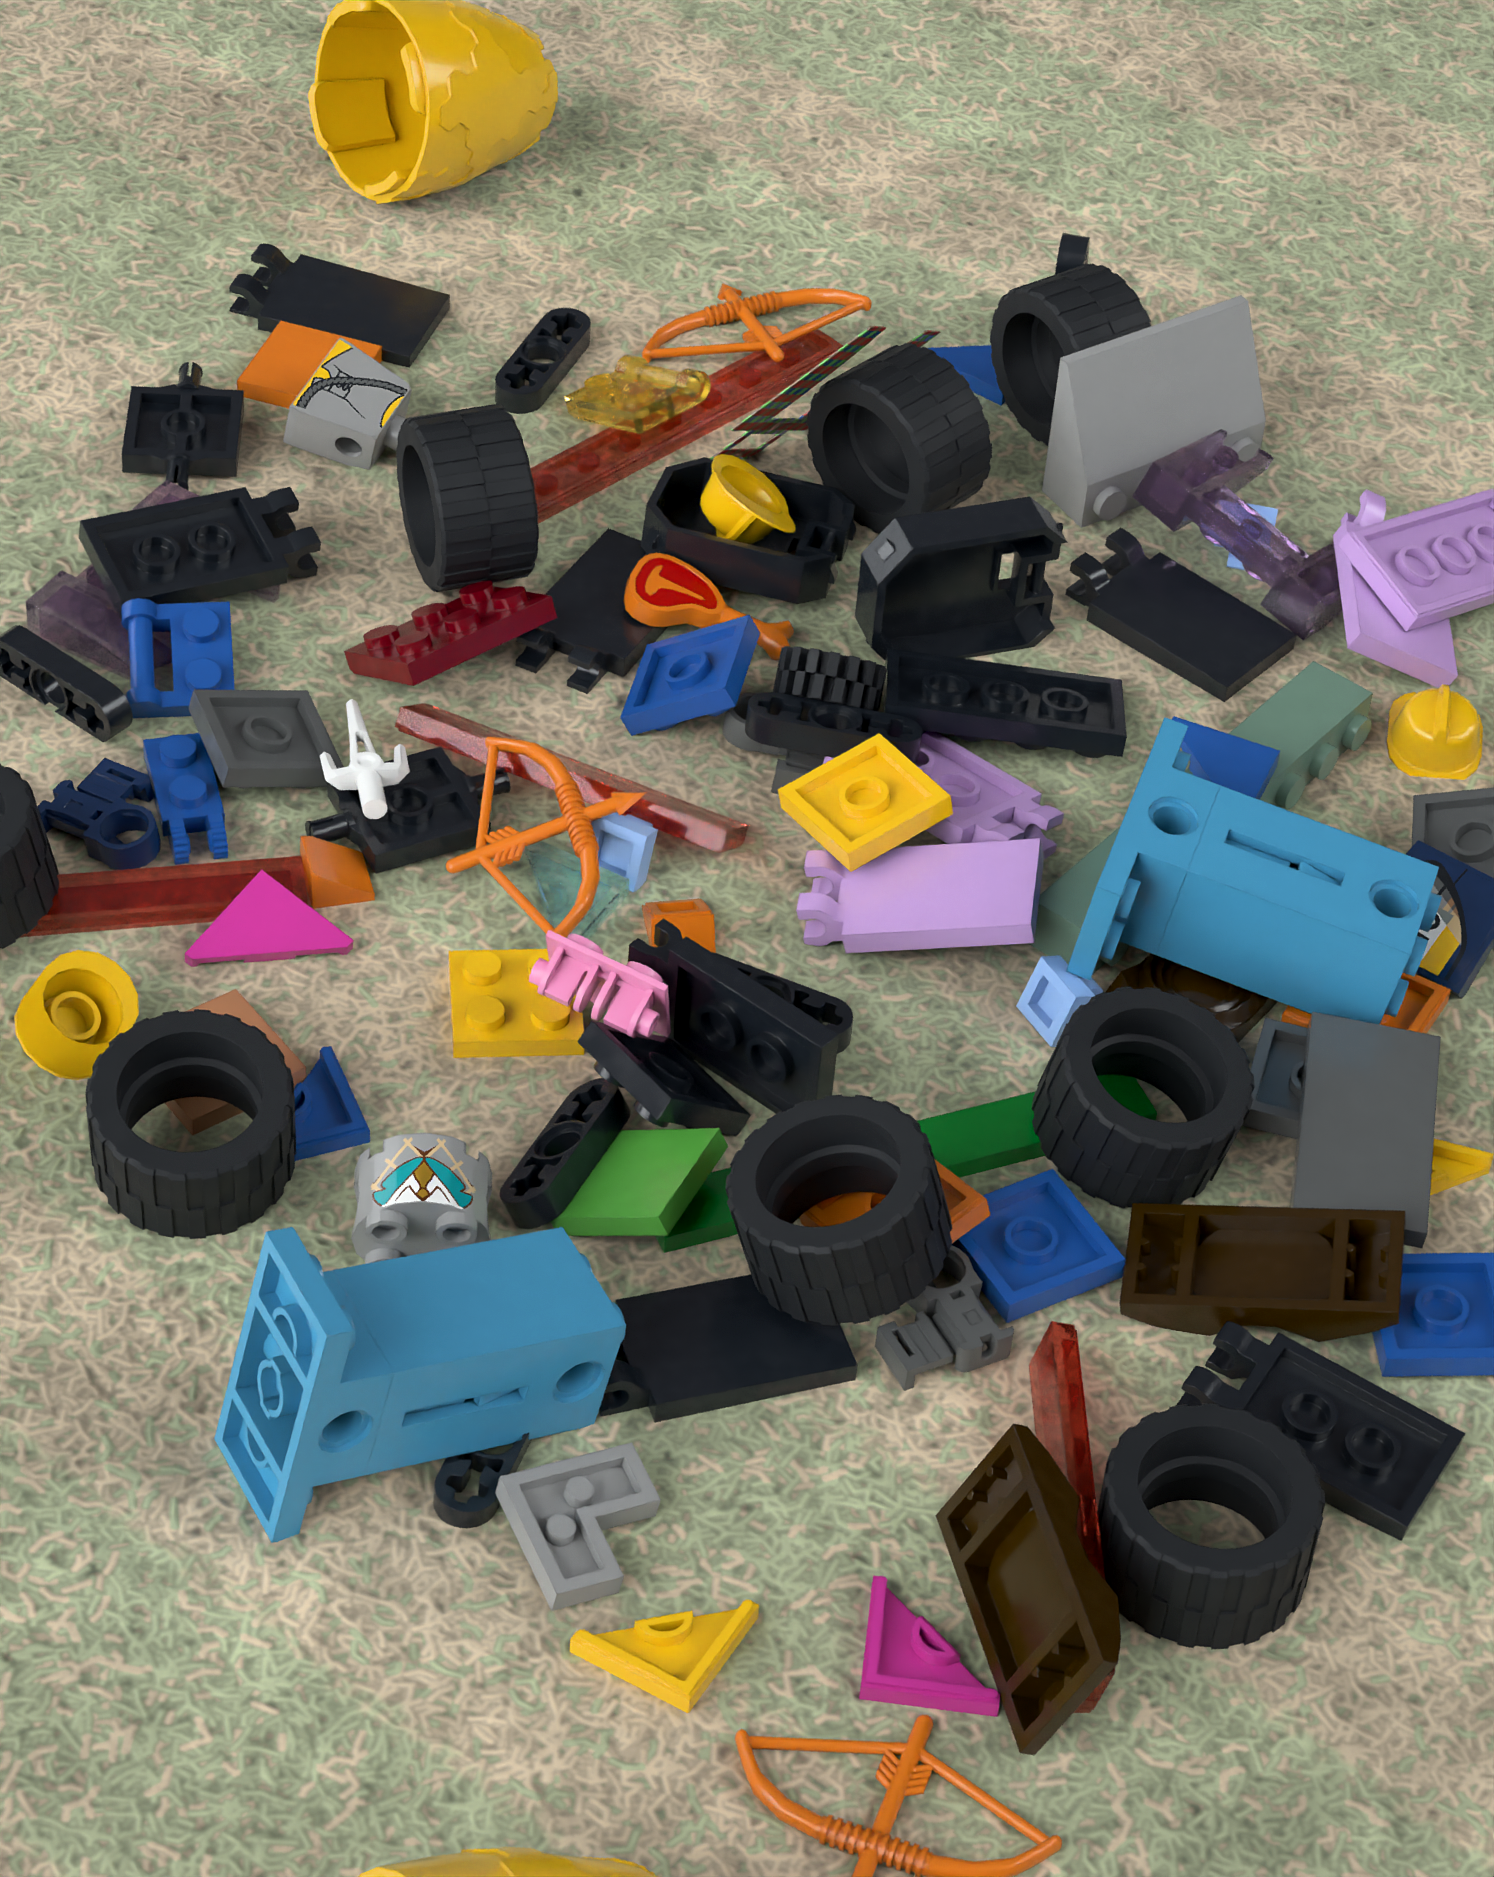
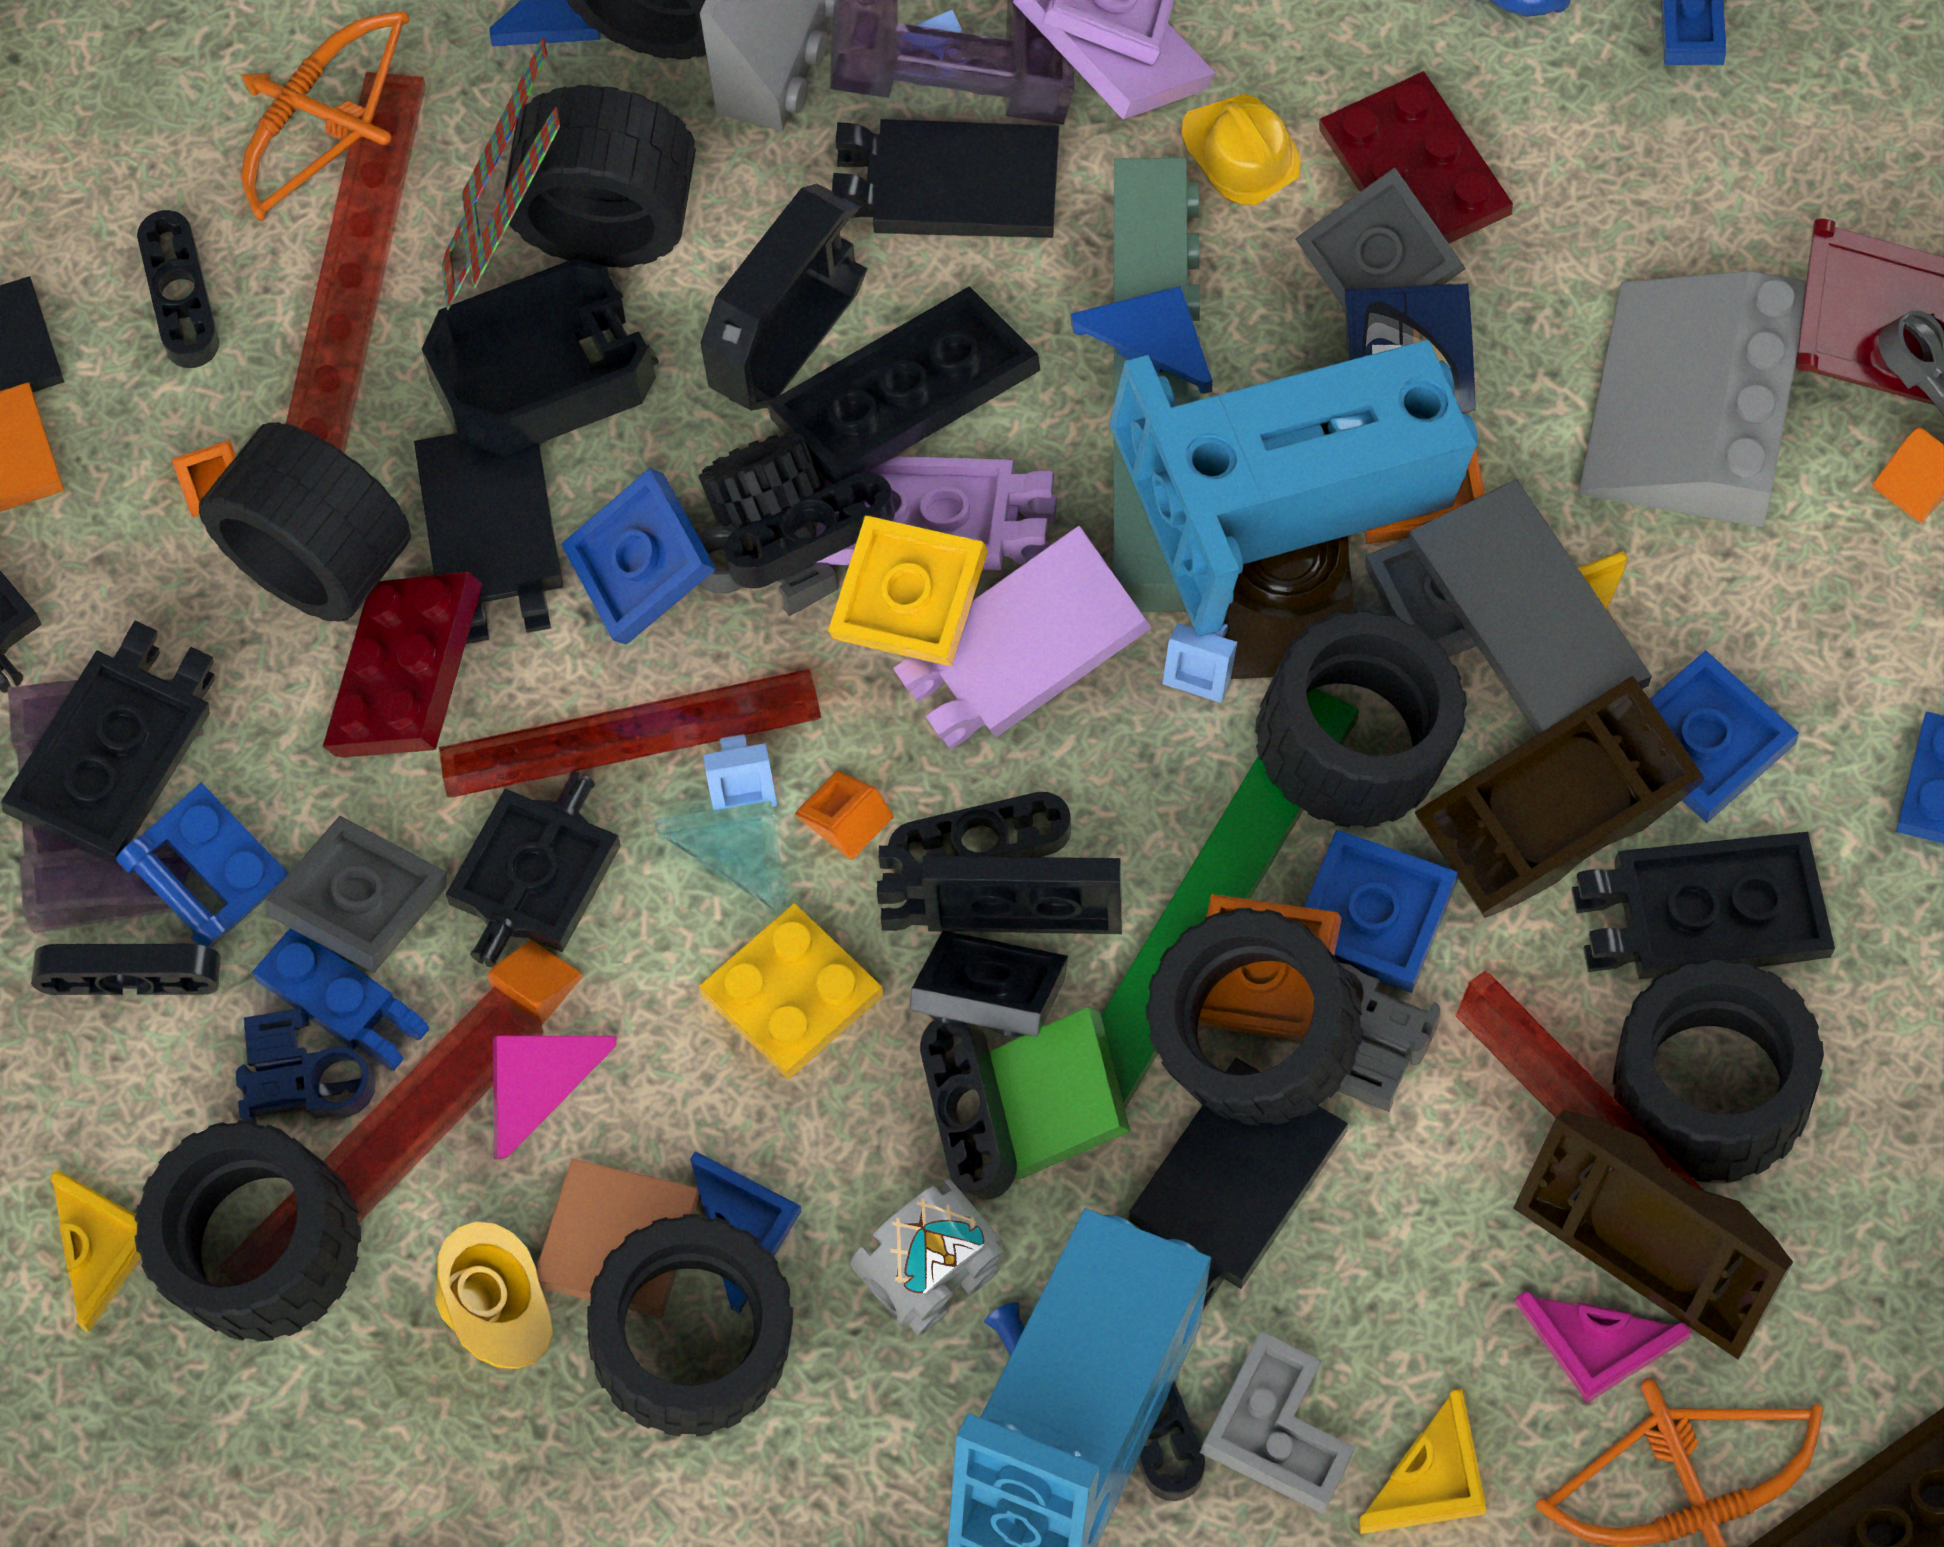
camera: 30 degrees left, 20 degrees up
(348, 408) = (89, 482): light grey torso -> none
(366, 769) = (478, 867): white piece -> none
(508, 844) = (657, 847): orange piece -> none
(631, 993) = (860, 961): bright pink hinge -> none
(637, 395) = (310, 290): clear yellow plate -> none
(672, 592) = (540, 474): orange piece -> none
(743, 501) = (525, 338): yellow piece -> none

